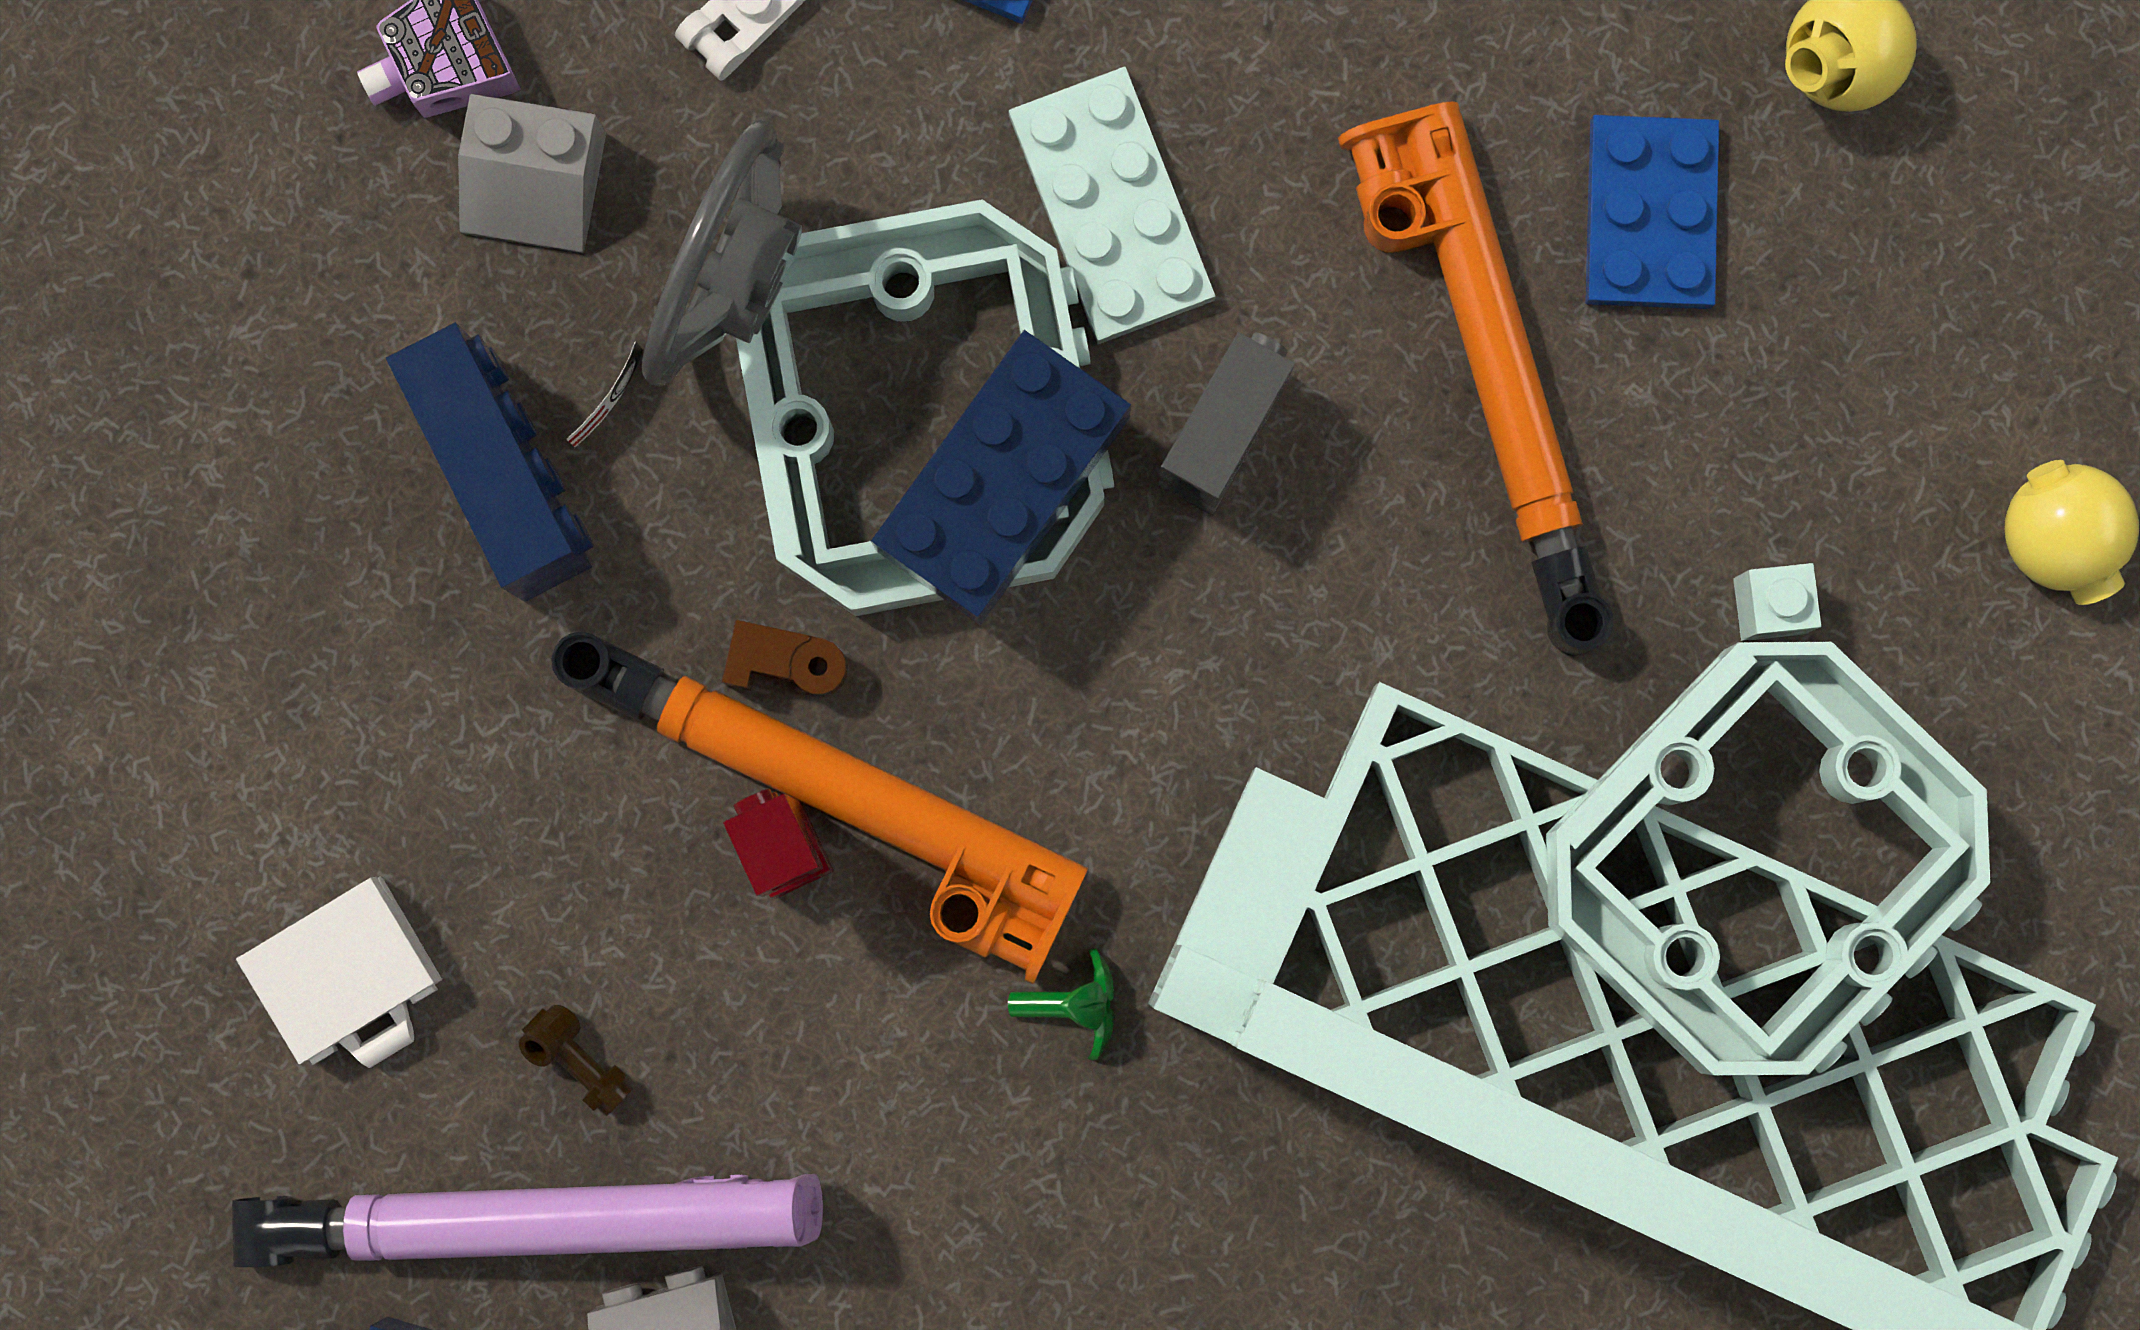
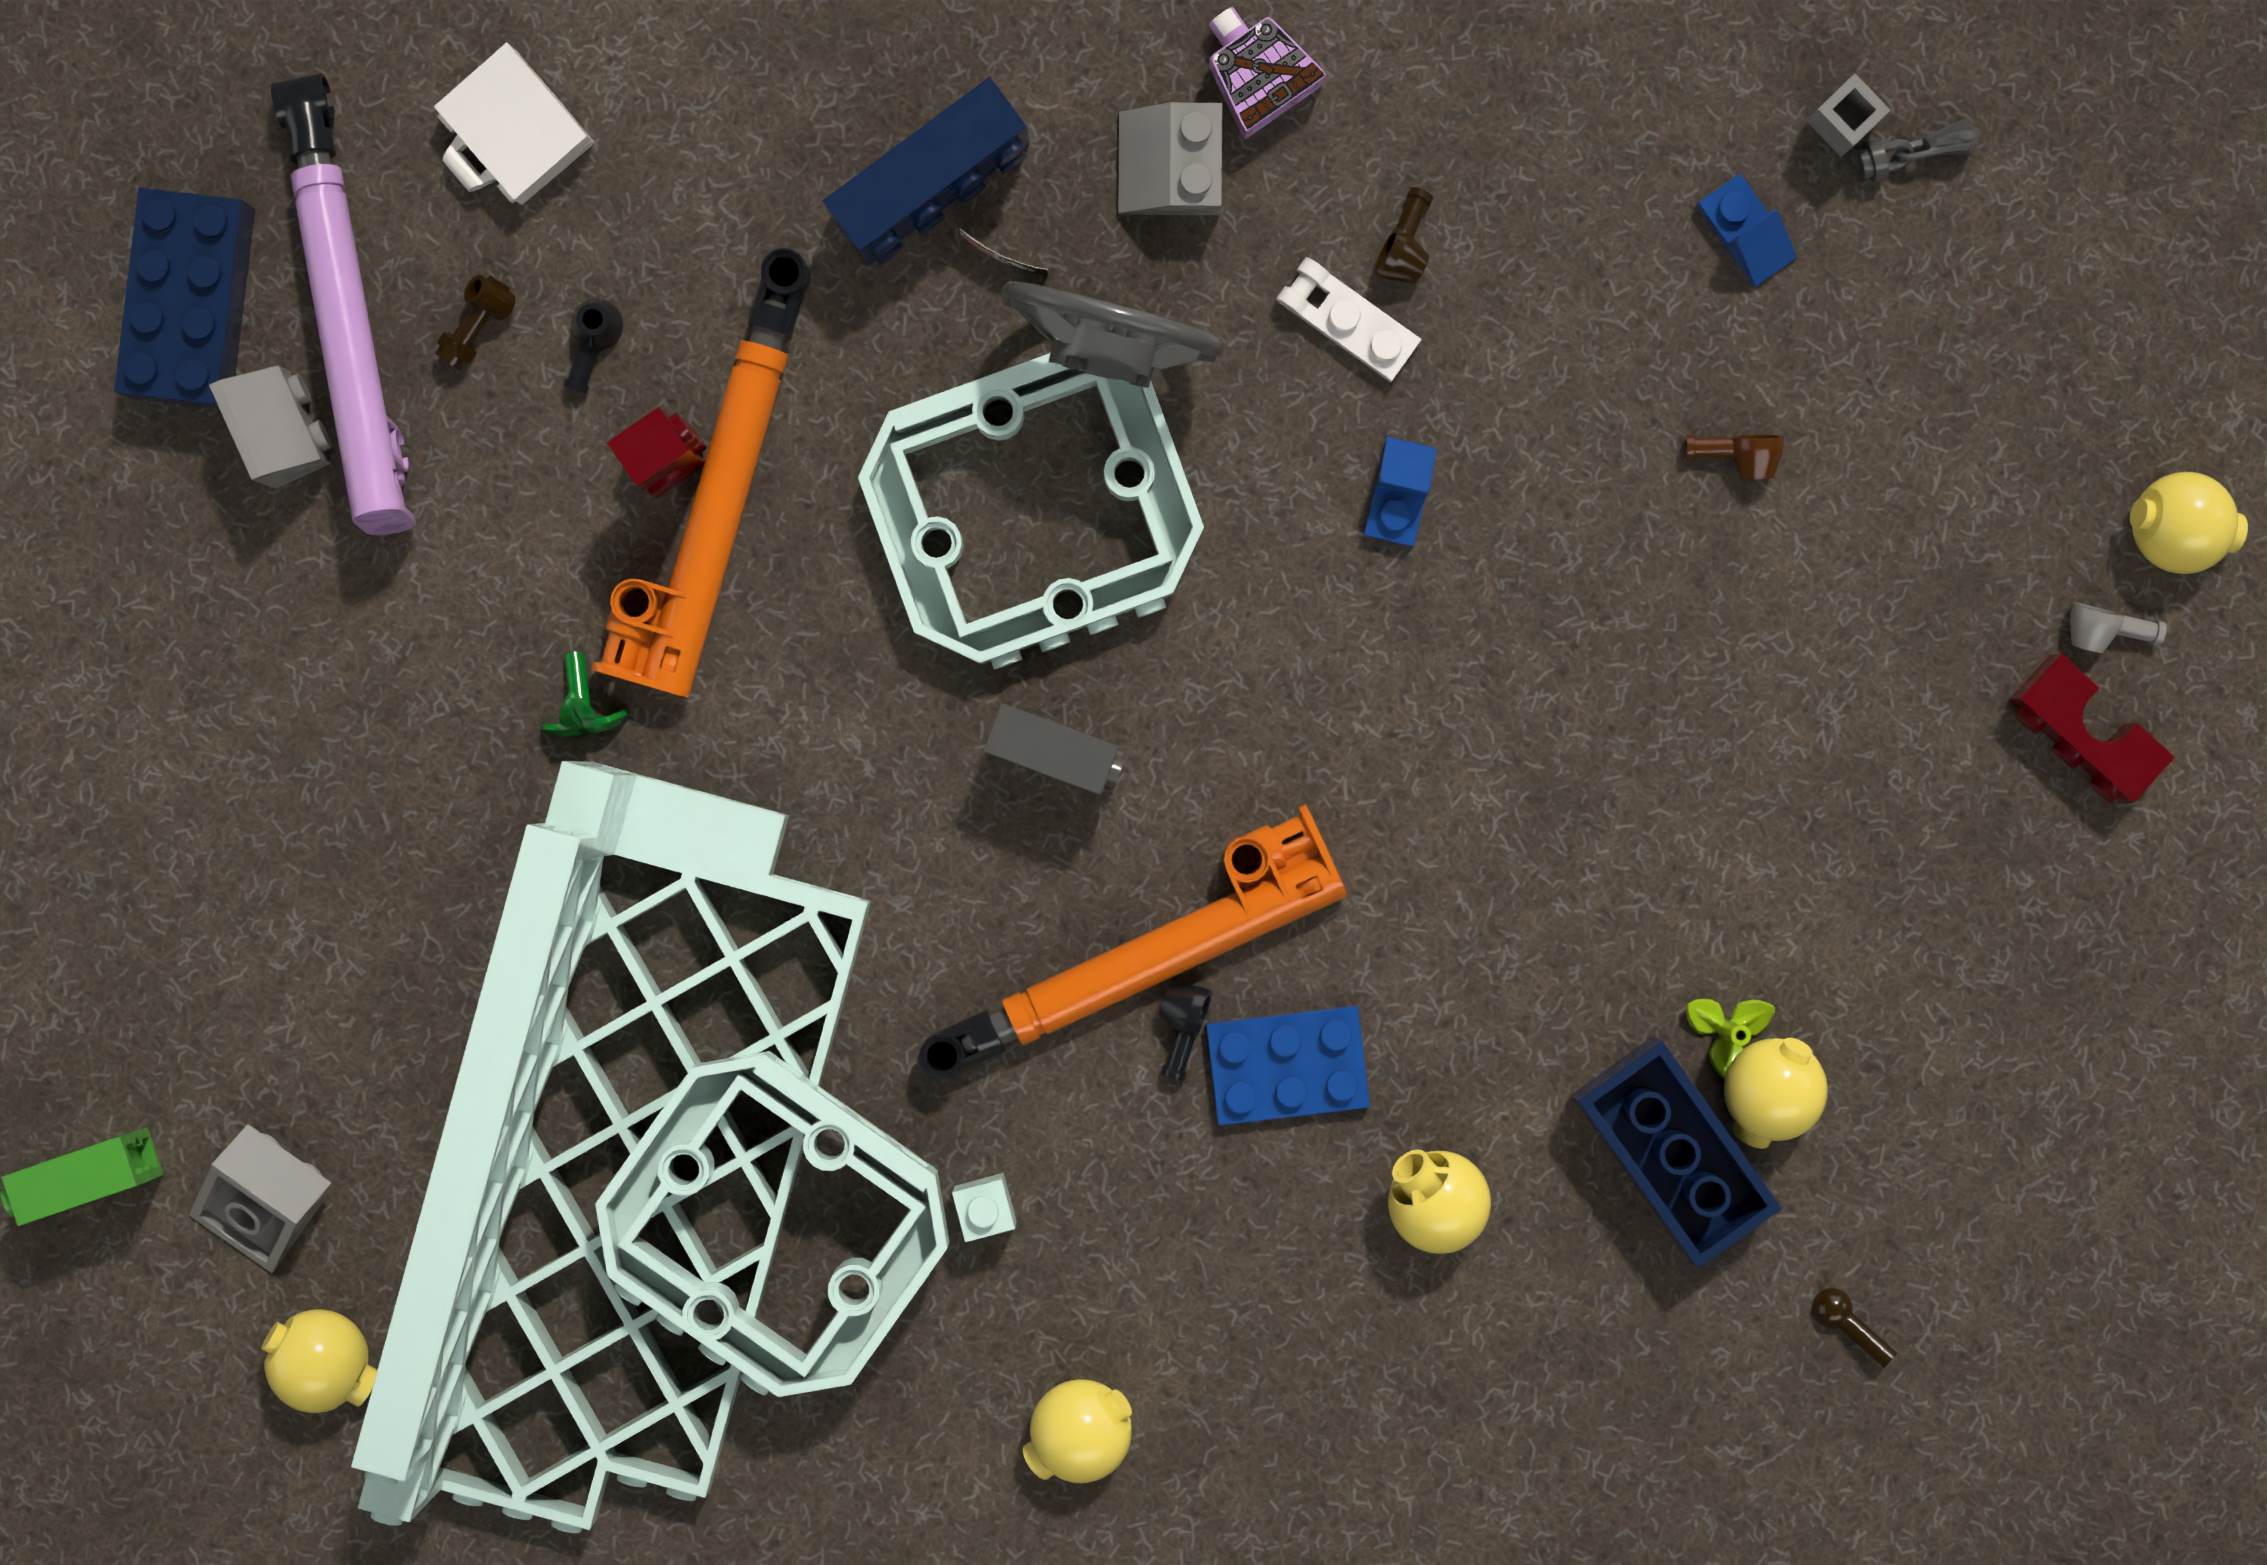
camera: 85 degrees right, 5 degrees up
(625, 919) = (592, 340): none -> black bar
(784, 655) = (815, 451): reddish brown leg -> none
(1002, 477) = (975, 578): dark blue brick -> none
(1111, 205) = (1224, 631): light aqua plate -> none
(1568, 323) = (1182, 1011): none -> black bar

